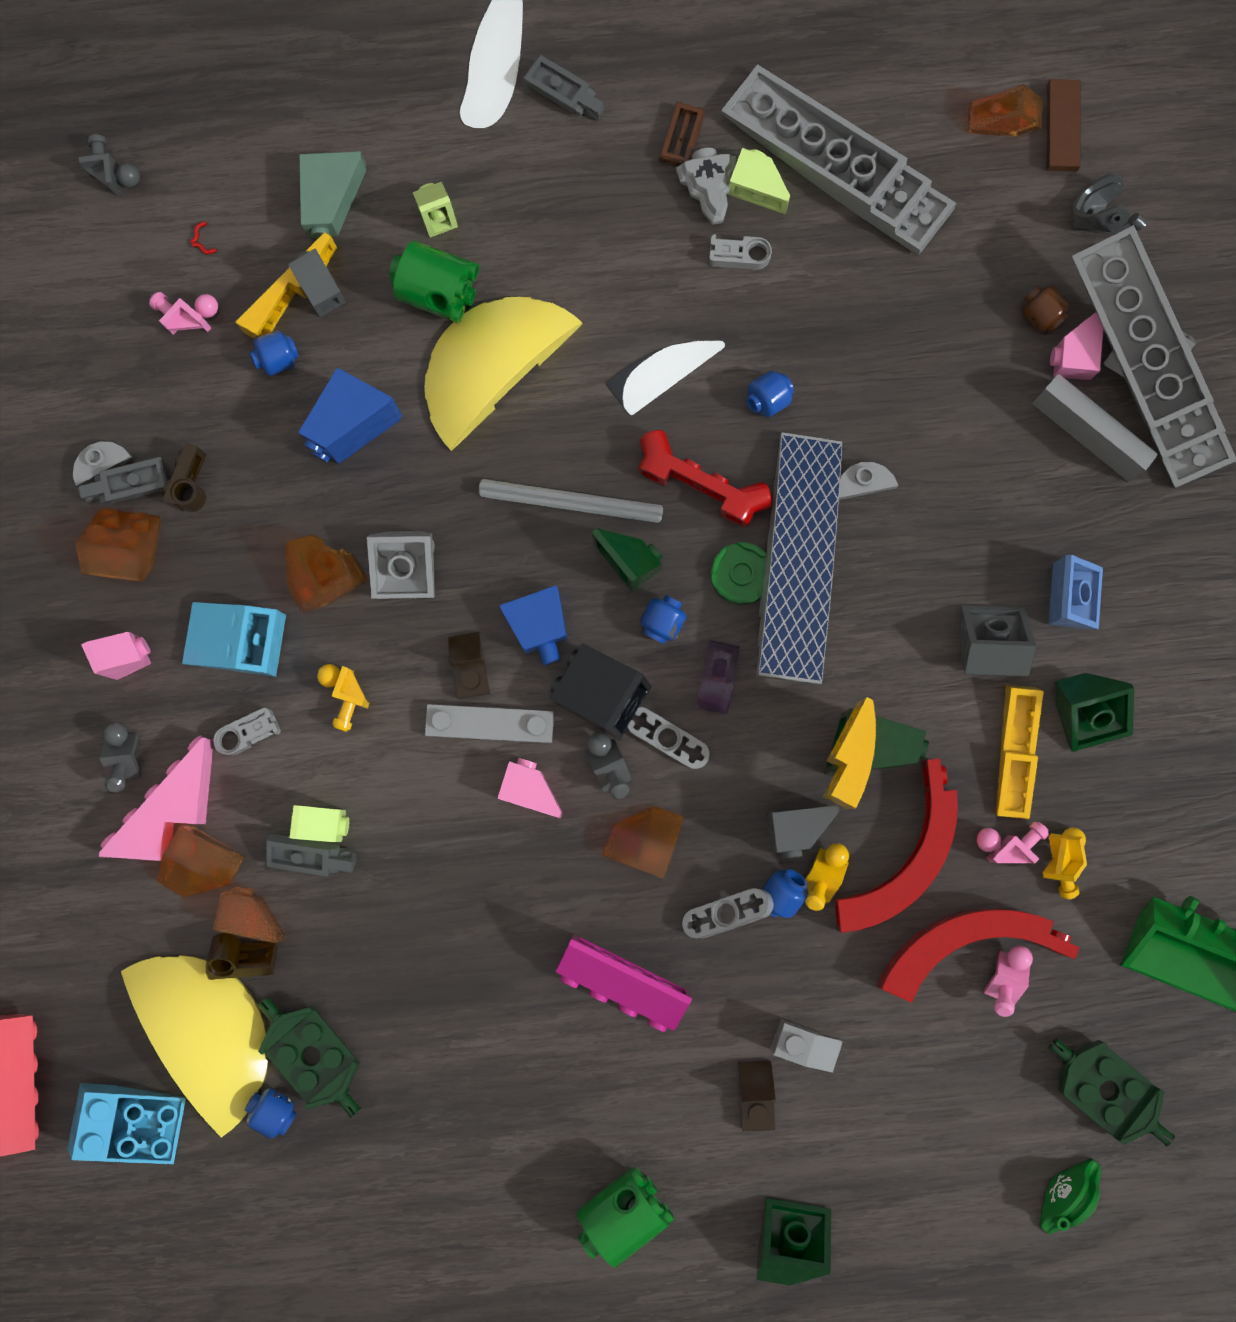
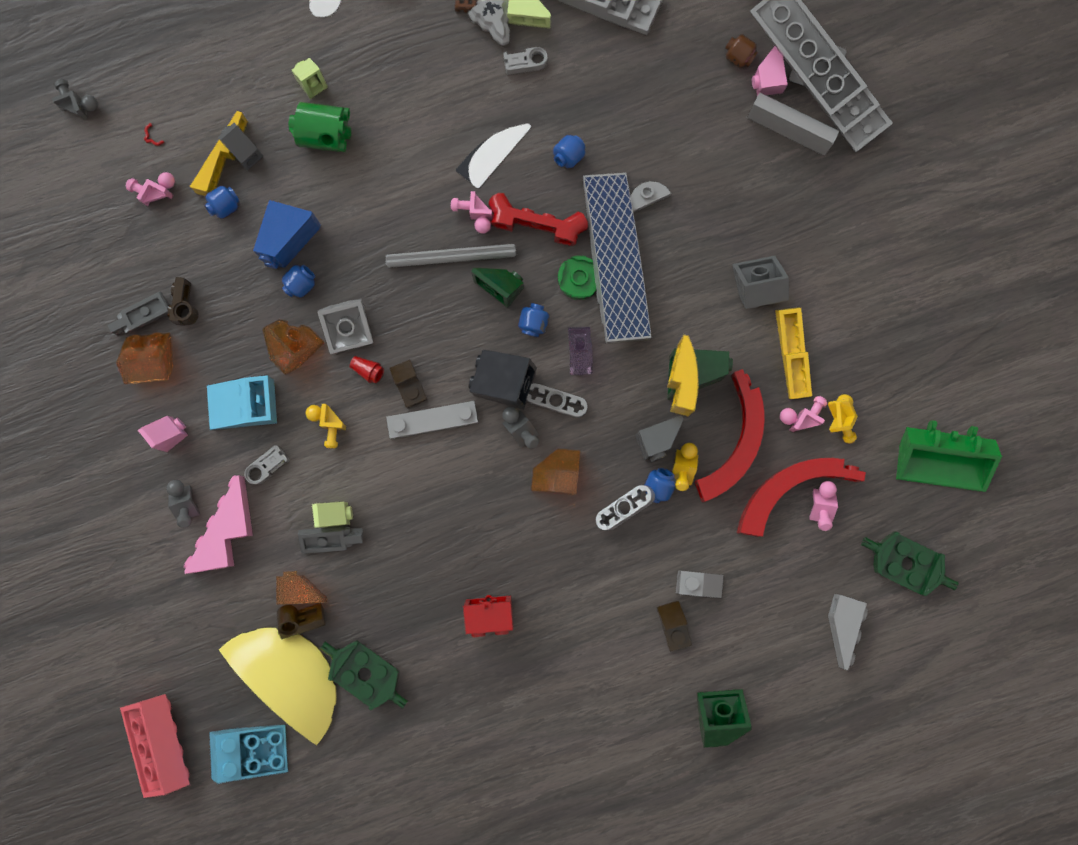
camera: 20 degrees left, 0 degrees up
(98, 458) = (115, 303): light grey plate -> none
(197, 863) = (253, 563): clear orange slope -> none
(270, 1113) = (346, 719): blue head -> none
(328, 190) = (232, 81): sand green slope -> none
(352, 487) = (298, 281): none -> blue head
(417, 632) = (369, 370): none -> red cone
(487, 357) = (369, 171): light yellow brick -> none
(500, 1019) = (488, 616): none -> red brick
(528, 788) = (469, 457): bright pink slope -> none
(538, 623) = (448, 343): blue torso -> none
(622, 447) = (478, 211): none -> bright pink piece
(622, 1218) = (604, 728): green cylinder -> none
(624, 983) = (567, 572): dark pink slope -> none
(1000, 1150) = (845, 623): none -> light grey slope
(1071, 1197) = (899, 640): green hat -> none
(1075, 593) = (806, 237): medium blue slope -> none
(1094, 709) = (838, 312): dark green slope -> none

